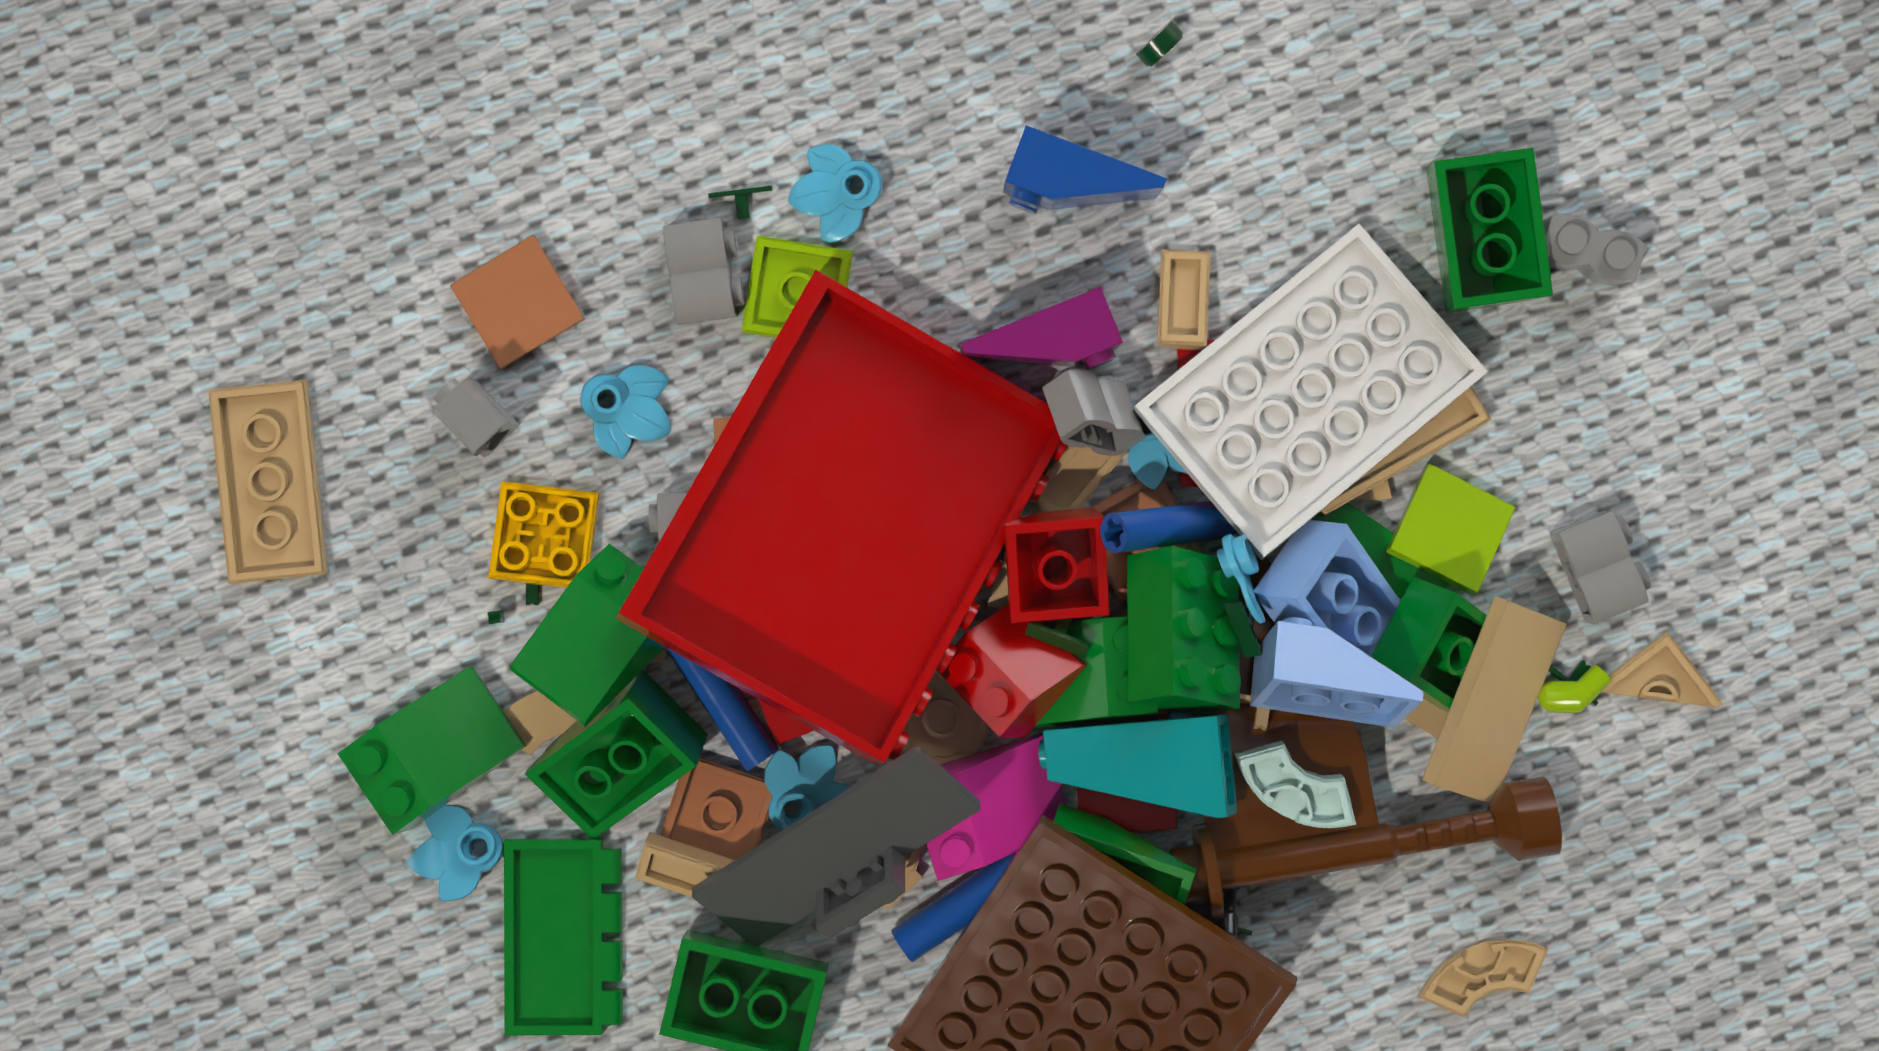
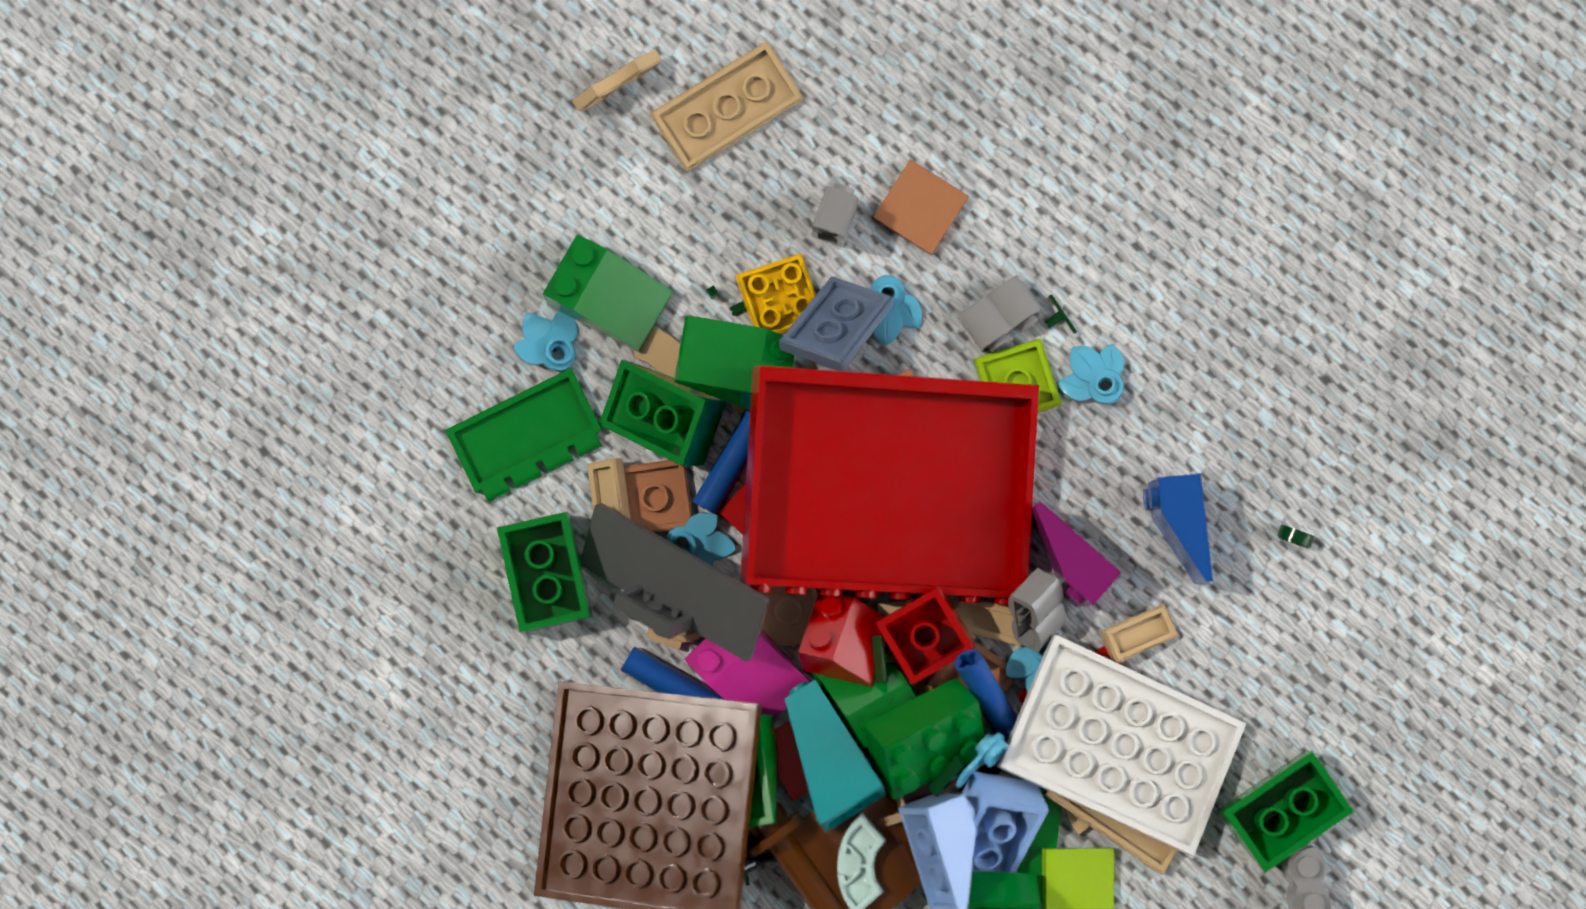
camera: 65 degrees right, 5 degrees down
(168, 624) = (607, 86): none -> tan tile
(612, 484) = (836, 323): none -> sand blue tile

